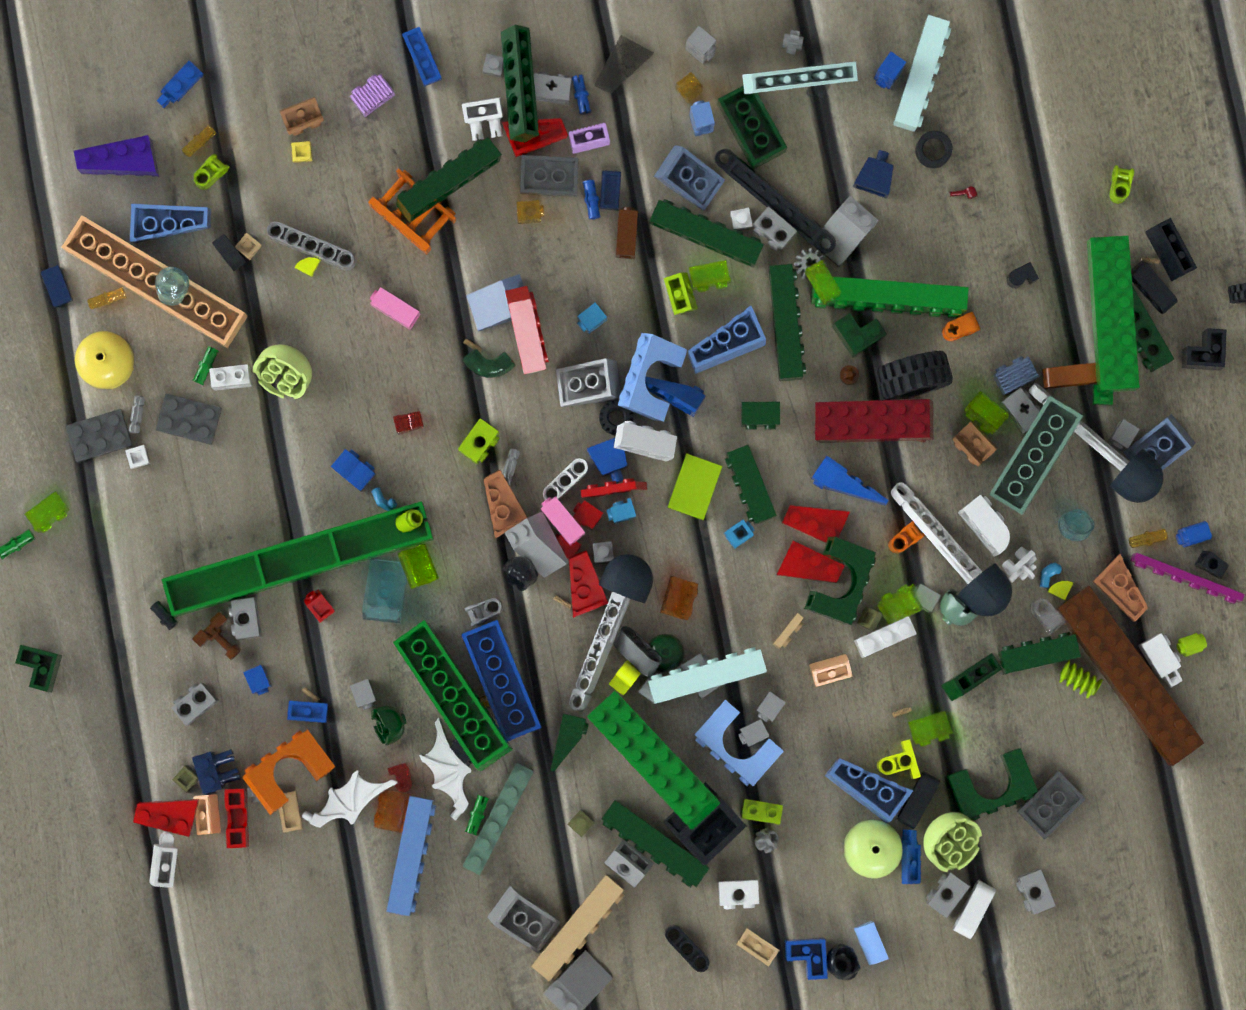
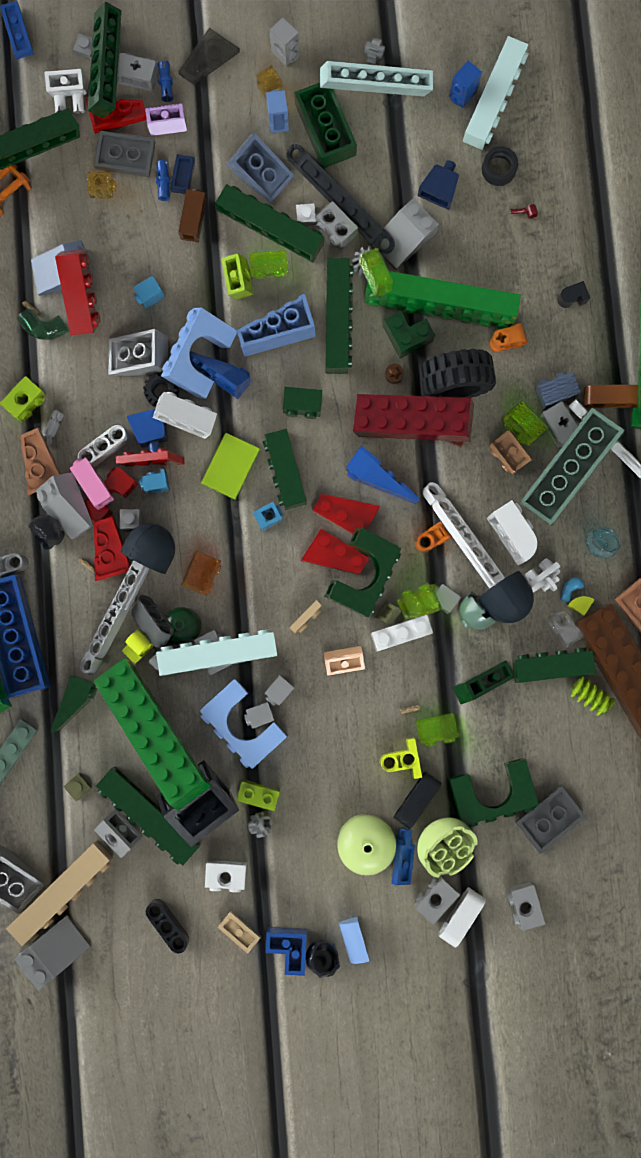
camera: 10 degrees right, 0 degrees up
(872, 791) = (374, 788): medium blue wedge -> none

